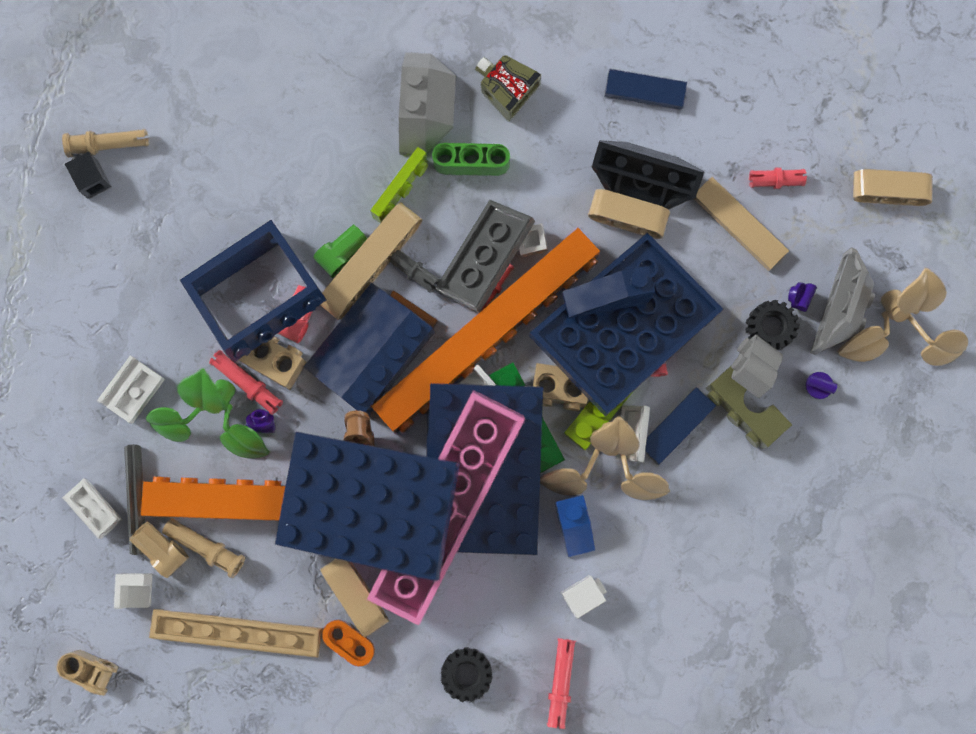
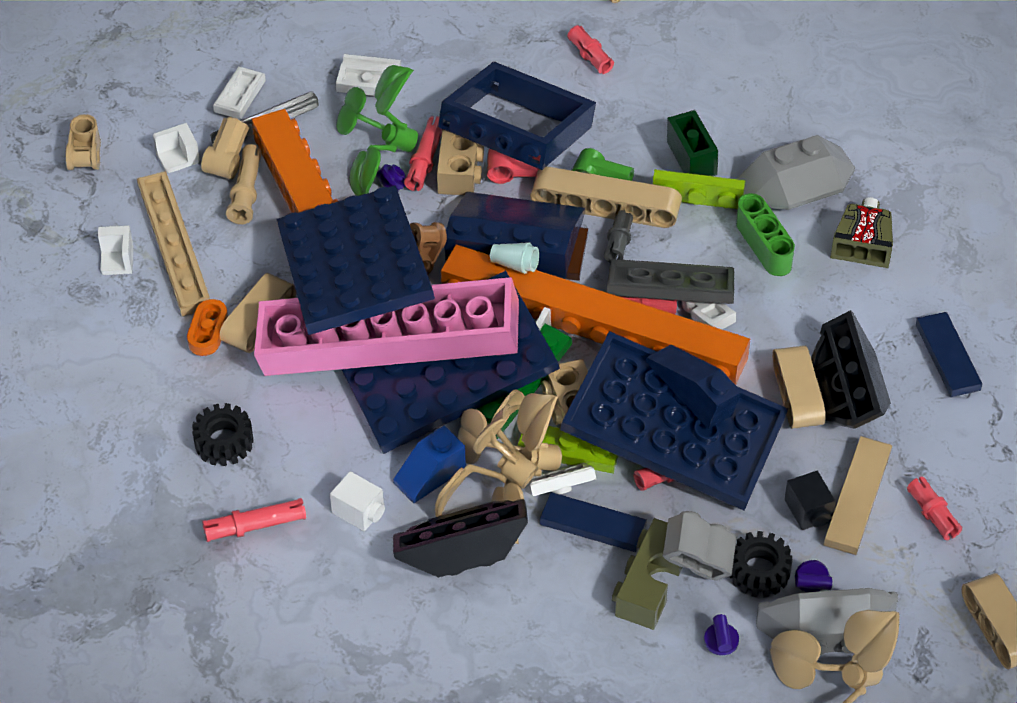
camera: 65 degrees right, 30 degrees down
(197, 191) = (590, 49): none -> coral pin
(226, 687) = (116, 250): none -> white panel
(356, 167) = (692, 144): none -> dark green brick
(416, 367) = (516, 256): none -> light aqua cone
(625, 472) = (512, 464): none -> tan plant
(658, 533) = (462, 538): none -> black wedge
(736, 261) = (809, 500): none -> black brick

